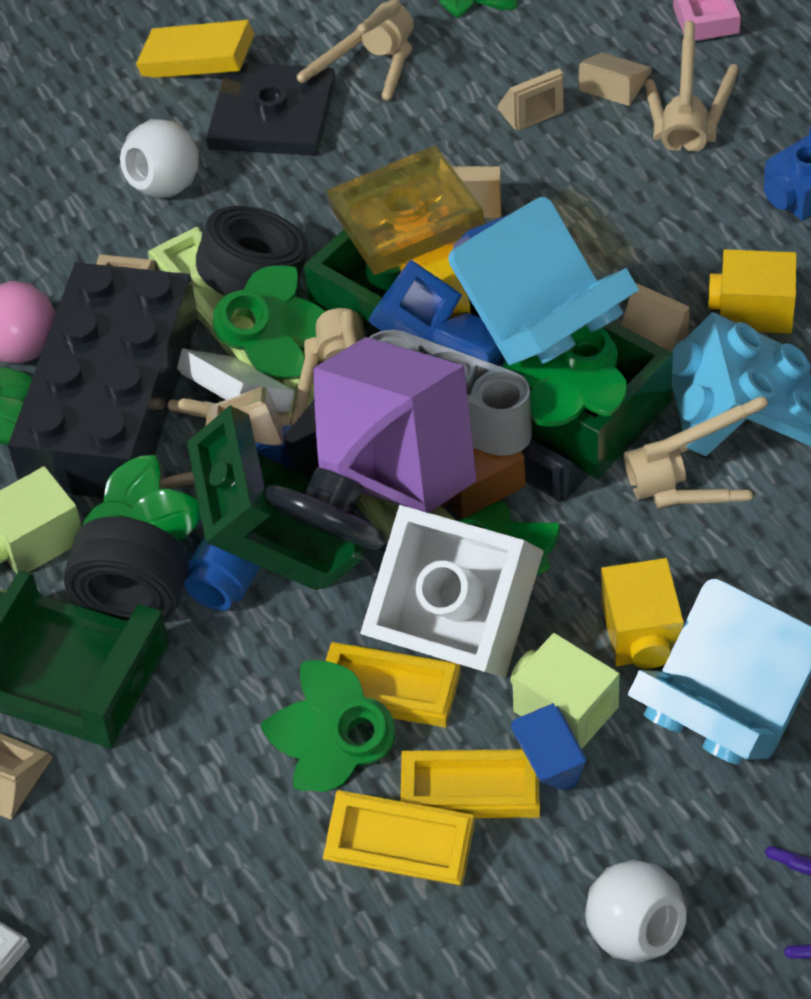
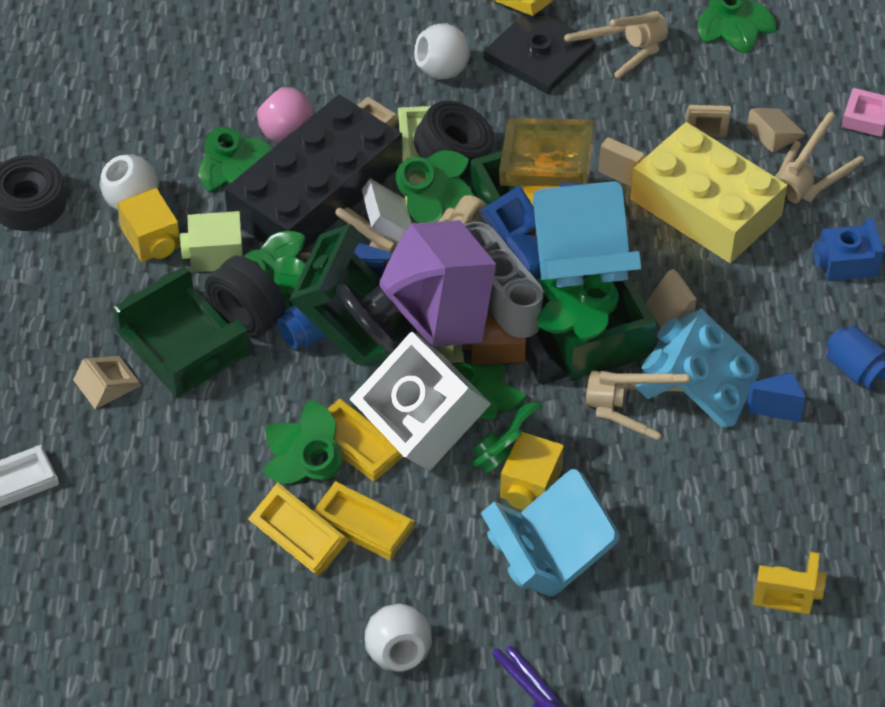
camera: 25 degrees right, 0 degrees up
(262, 412) = (375, 241): tan slope -> none
(550, 747) = (412, 520): blue slope -> none
(572, 681) = (451, 495): yellowish green brick -> none
(582, 586) = (495, 449): none -> green plate
(605, 175) = (708, 192): none -> light yellow brick
(756, 289) = (754, 310): yellow brick -> none

